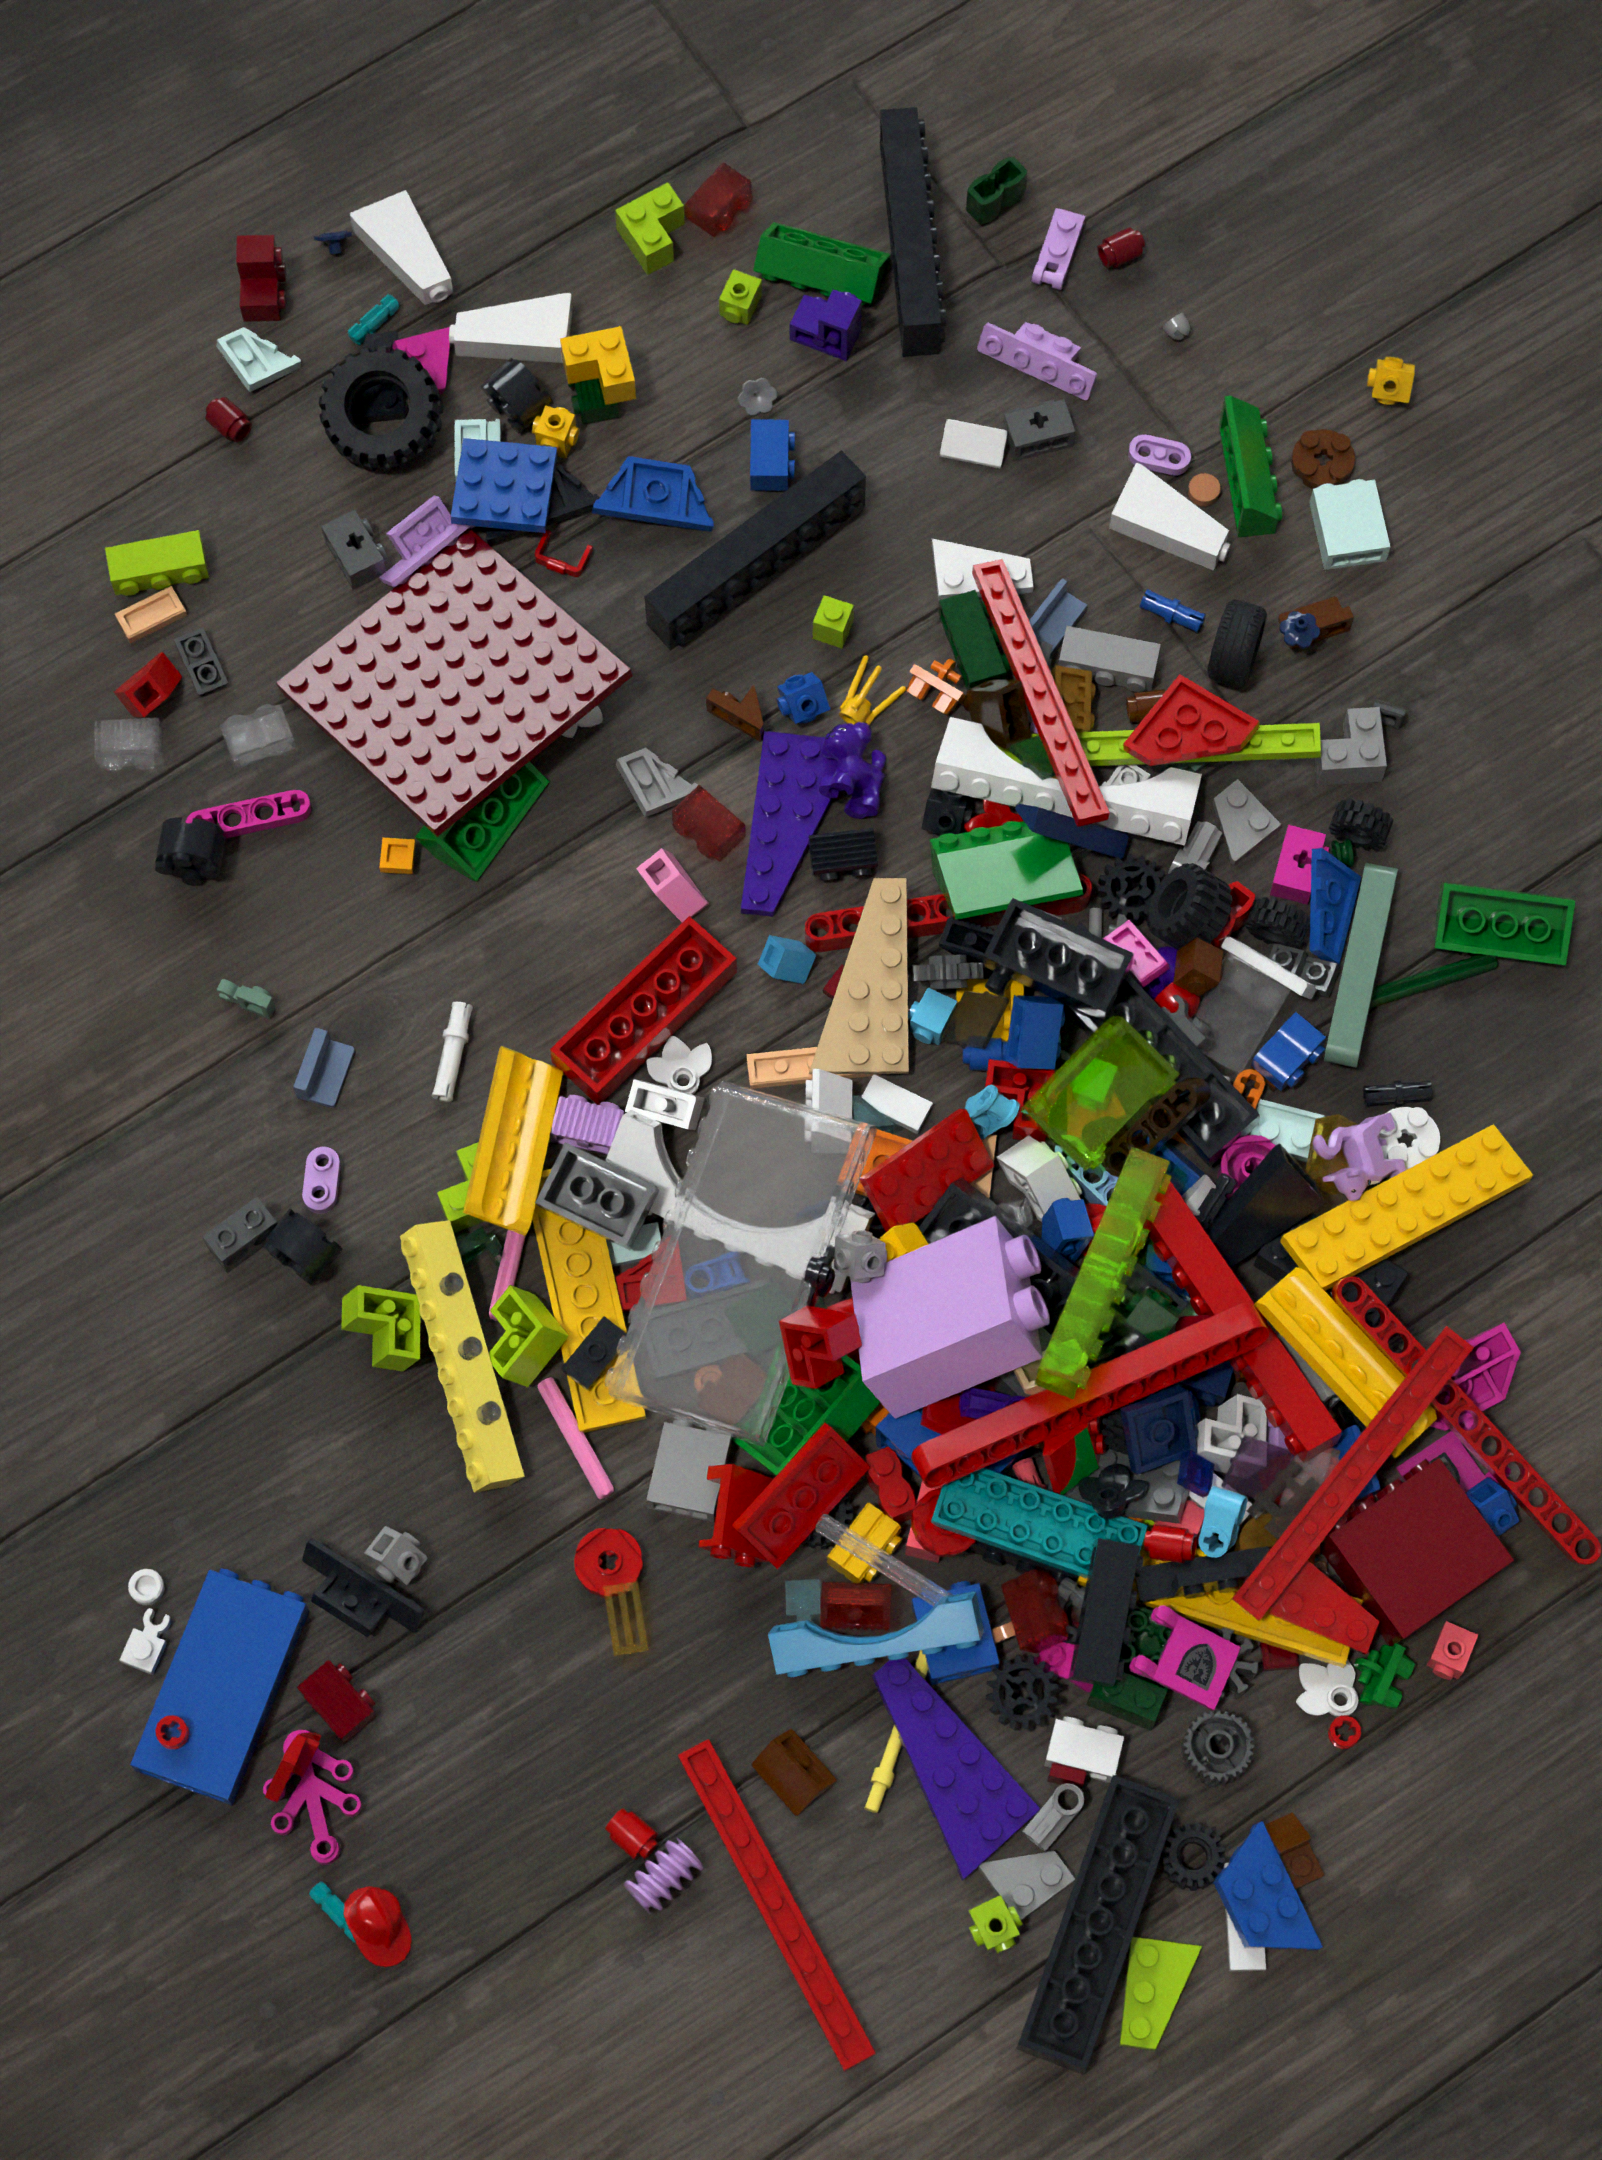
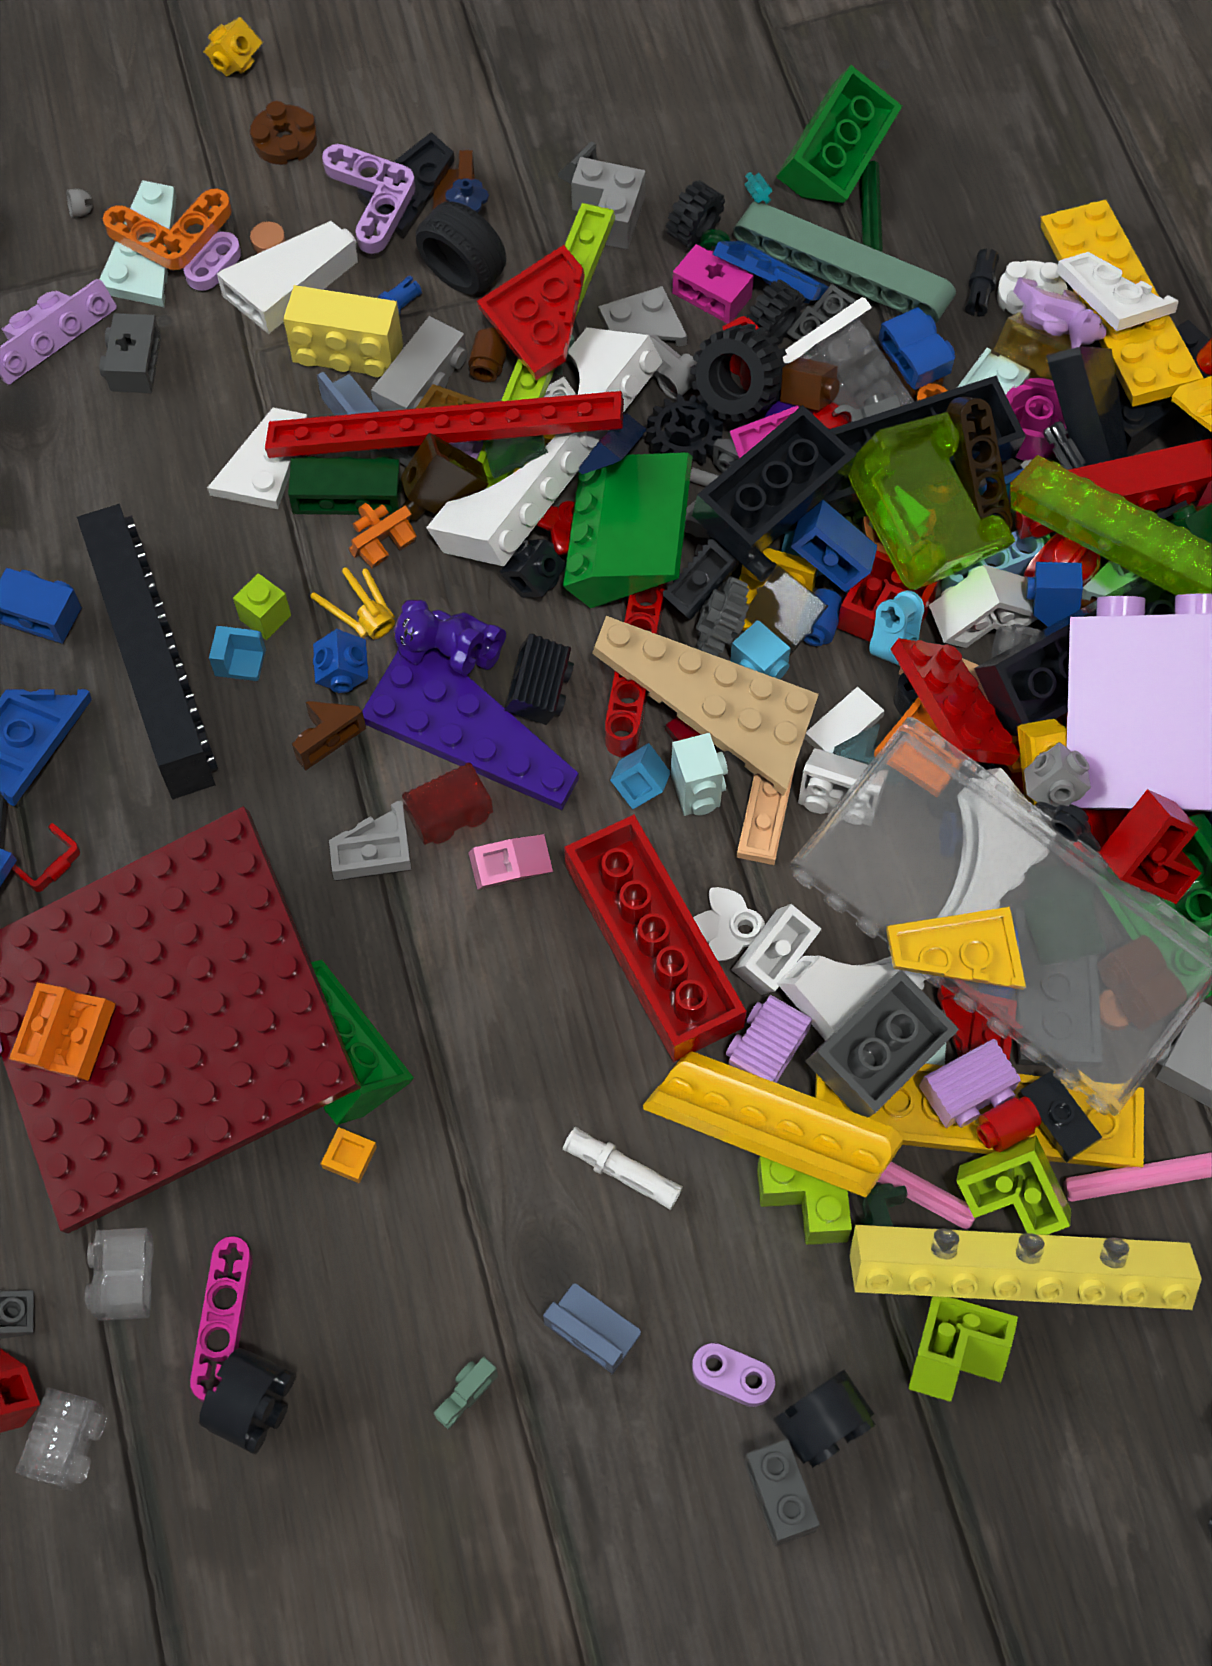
camera: 70 degrees left, 5 degrees down
(417, 619) = (62, 1031): none -> orange slope
(571, 1313) = (1008, 1123): none -> red brick
(594, 1276) = (970, 1084): none -> lavender brick
(688, 1223) = (960, 947): none -> yellow wing
(785, 620) = (237, 653): none -> dark azure panel
(794, 998) = (698, 774): none -> light aqua brick
(973, 443) = (115, 417): white slope -> none
(1115, 582) = (342, 331): none -> light yellow brick
(1140, 397) = (130, 273): none -> light aqua wing
(1164, 417) = (174, 238): none -> orange beam
(1248, 468) = (271, 191): green slope -> none
(1280, 563) = (380, 185): none -> lavender beam
(1306, 579) = (429, 163): none -> black wing
(1349, 524) = (367, 123): light aqua brick -> none
(1392, 1194) = (1110, 294): none -> white wing
(1416, 868) = (758, 188): none -> teal axle

